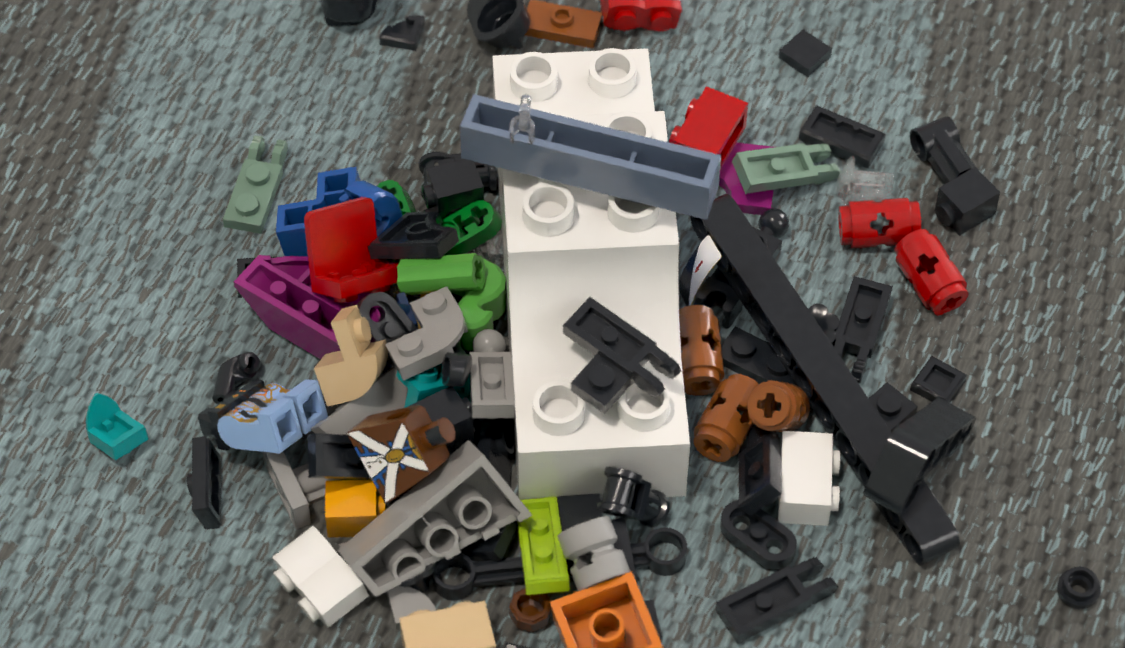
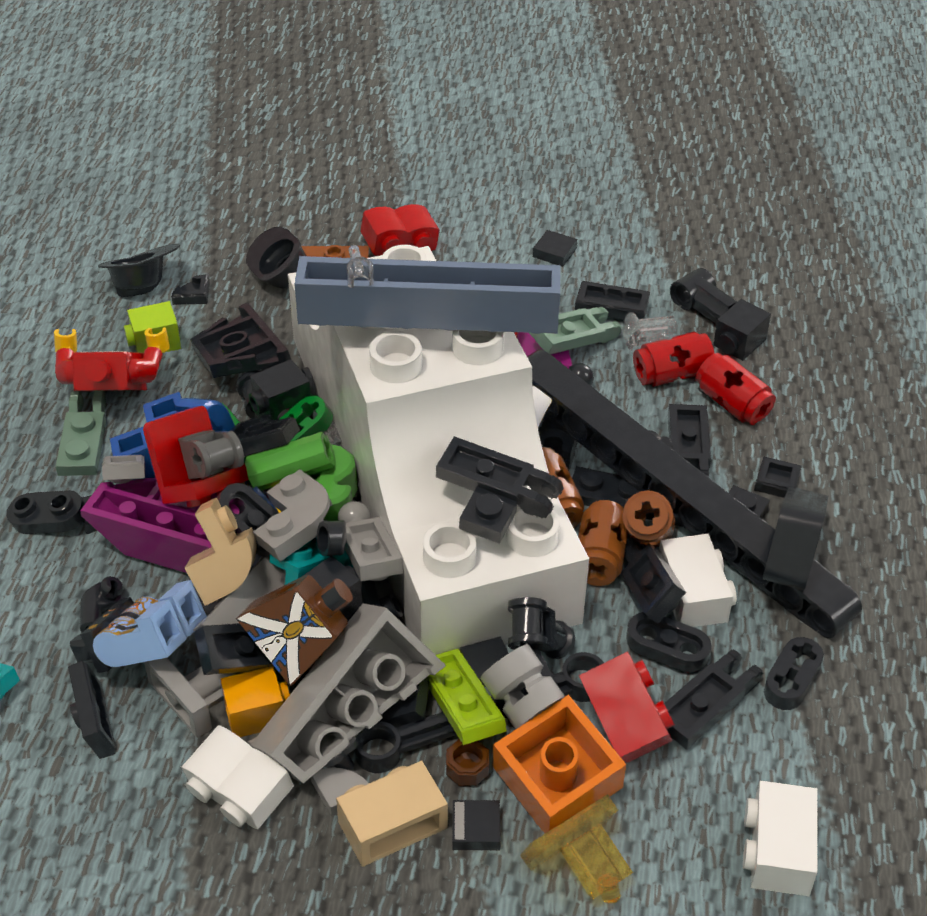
camera: 15 degrees left, 10 degrees down
(197, 265) = (46, 512): none -> black plate
(282, 244) = (123, 468): none -> light grey tile
(293, 121) = (109, 368): none -> red torso
(350, 77) = (155, 317): none -> lime brick
(363, 252) = (211, 453): none -> dark grey piece
(429, 113) = (239, 345): none -> black wing
(688, 593) = (626, 708): none -> brick
(874, 599) = (785, 669): none -> black beam

